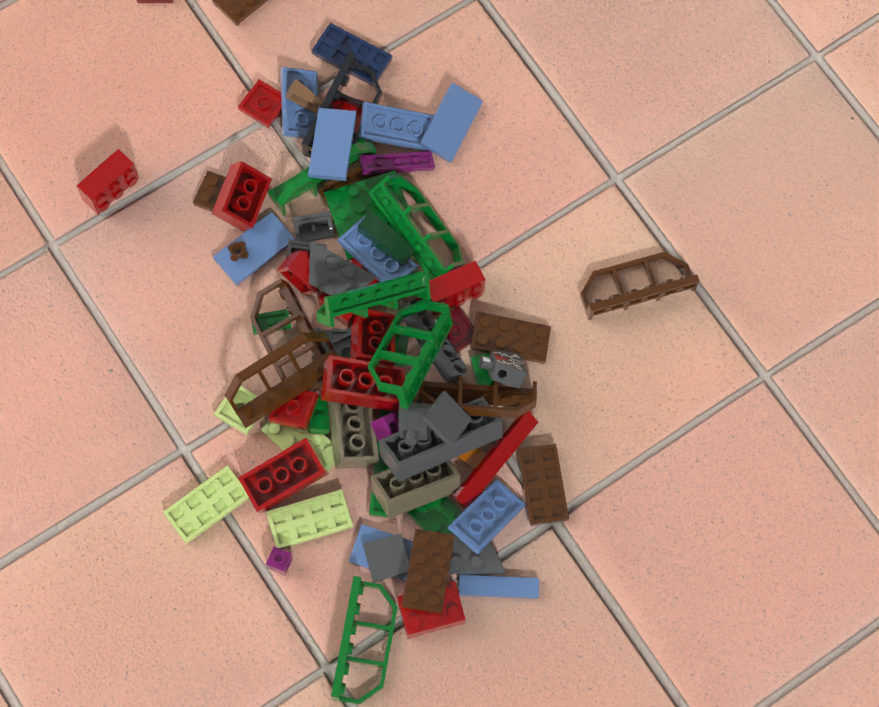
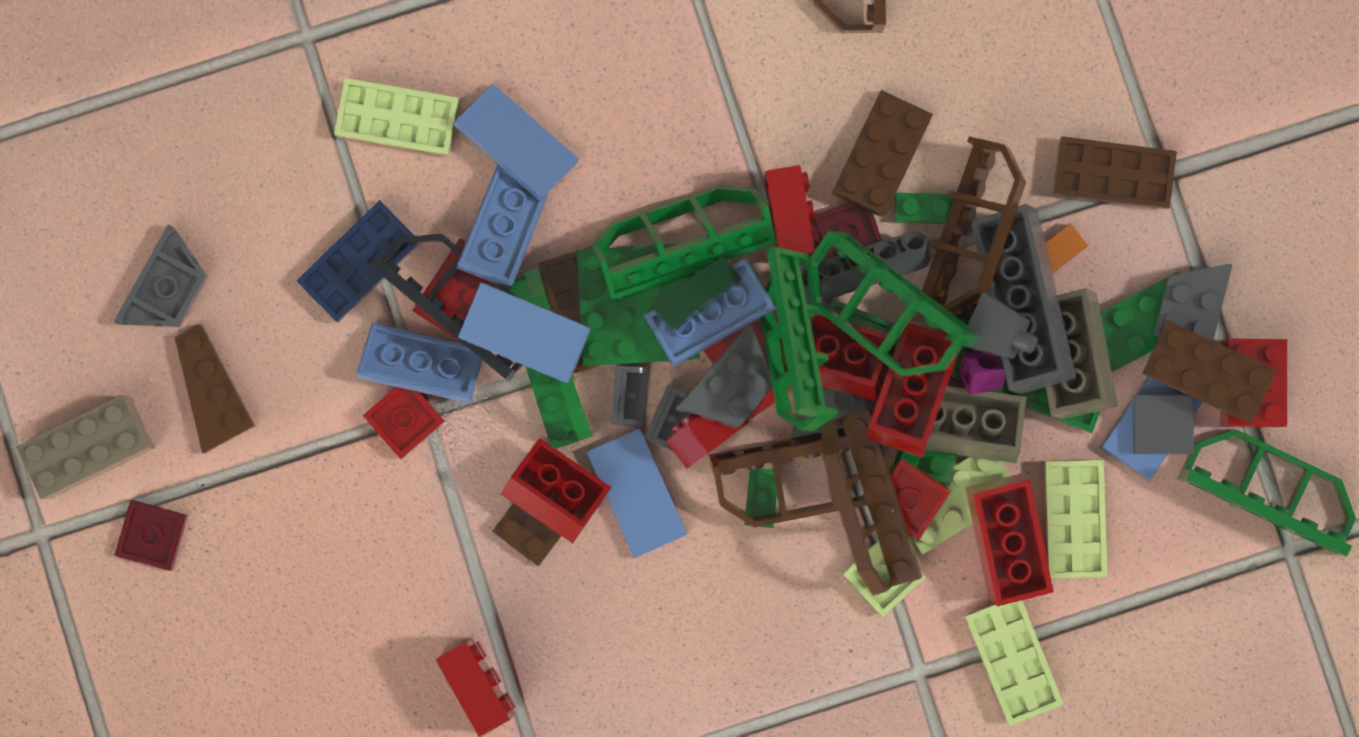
camera: 65 degrees left, 15 degrees up
(238, 246) = (645, 524): reddish brown plate -> none
(279, 561) = (1126, 577): magenta brick -> none
(303, 96) = (417, 356): medium nougat slope -> none
(396, 161) = (562, 242): magenta tile -> none
(446, 53) = (396, 116): none -> yellowish green plate
(446, 418) = (1010, 283): dark grey tile -> none
(486, 516) = (1145, 266): medium blue tile -> none
(495, 459) = (1067, 233): red tile -> none
(499, 586) = (1244, 276): medium blue tile -> none
(504, 367) = (936, 175): dark grey torso -> none

